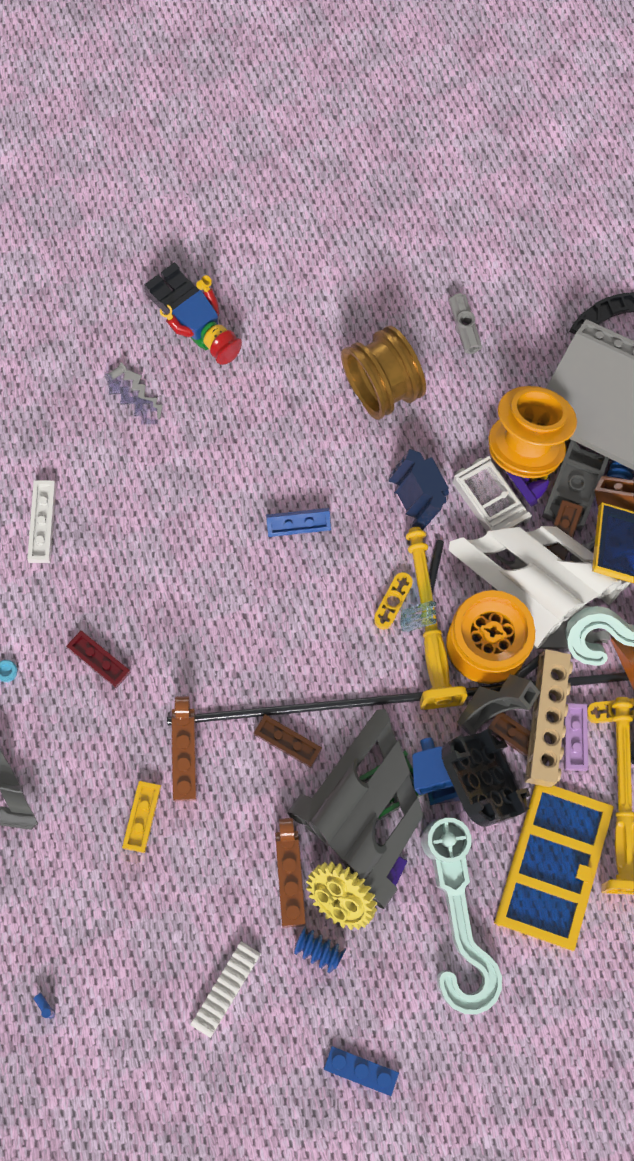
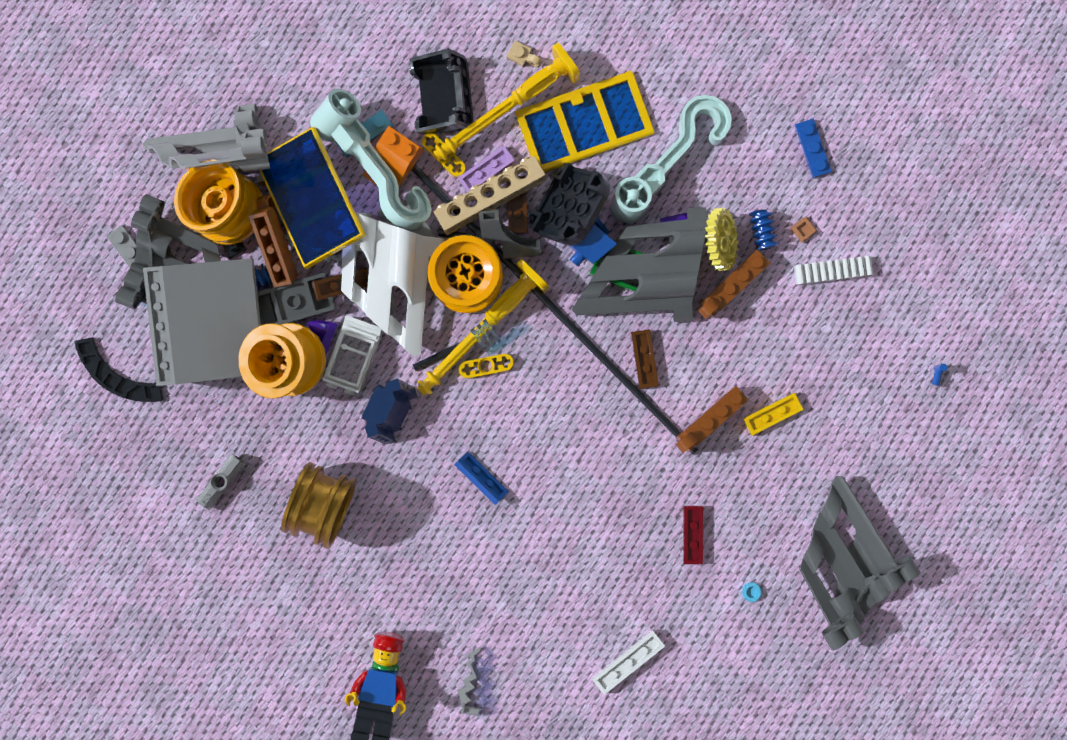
camera: 120 degrees left, 15 degrees up
(288, 993) = (803, 229): none -> nougat tile

